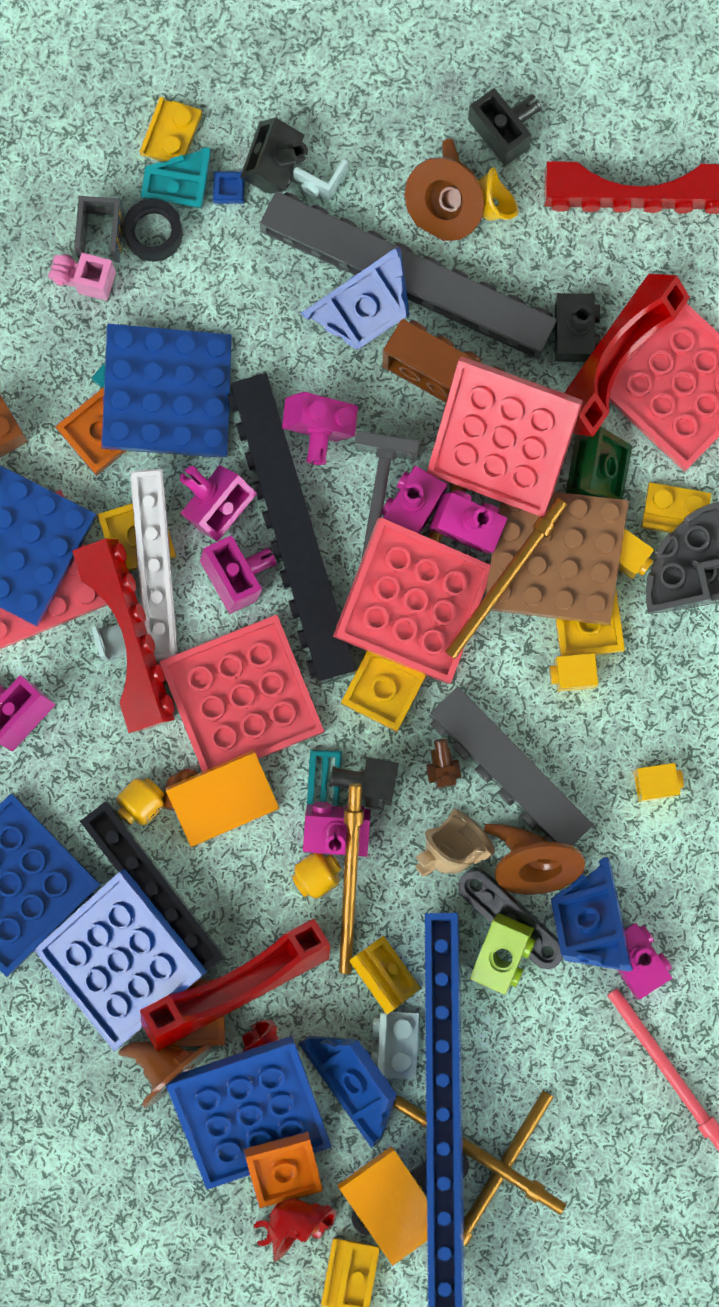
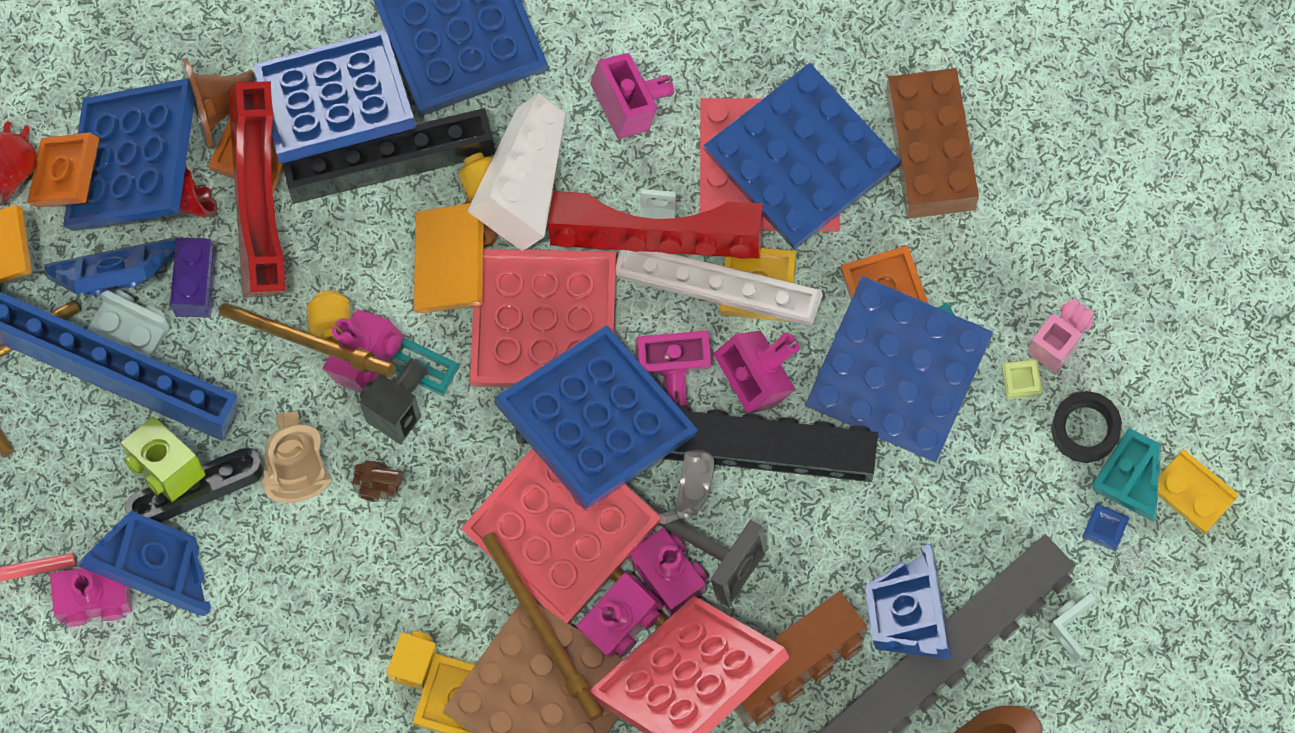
camera: 115 degrees right, 10 degrees down
(87, 206) = (1115, 353): dark grey piece -> none
(124, 765) = (521, 175): none -> white wedge
(131, 296) = (1021, 379): none -> yellowish green tile
(273, 156) = (1118, 582): pearl dark grey brick -> none
(320, 603) = (595, 417): none -> blue plate
(321, 420) = (795, 506): dark pink brick -> none
(331, 1008) = (193, 277): none -> dark purple brick
(339, 511) = (693, 486): none -> light grey helmet
(383, 690) = (482, 457): yellow plate -> none
(385, 974) = (200, 340): yellow plate -> none
(509, 769) = (342, 550): dark grey brick -> none
(534, 862) = (240, 529): dark orange piece -> none
(658, 782) = (258, 695): yellow brick -> none

